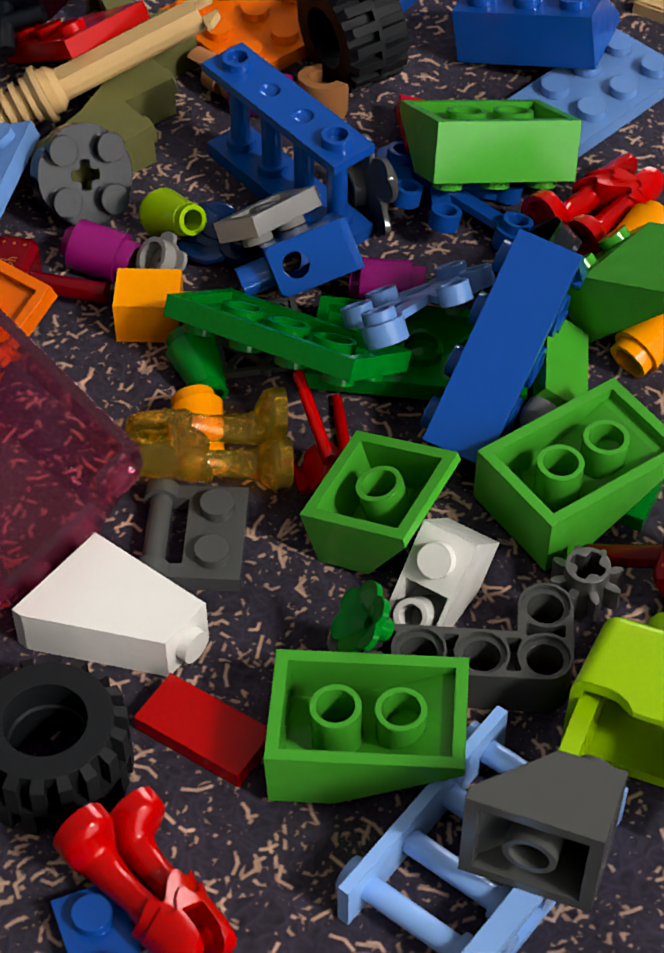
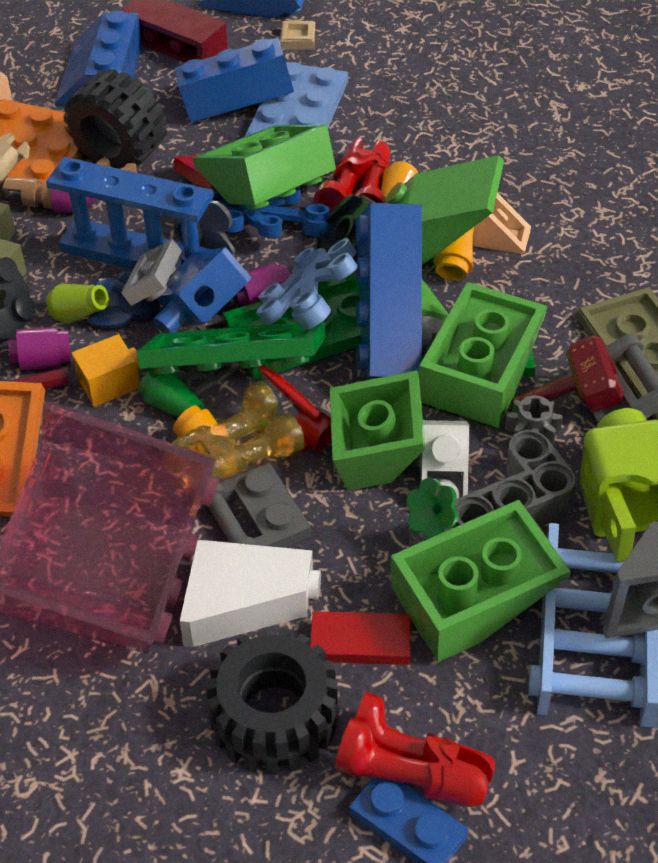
camera: 30 degrees left, 0 degrees up
(161, 253) = (80, 331): light grey plate -> none

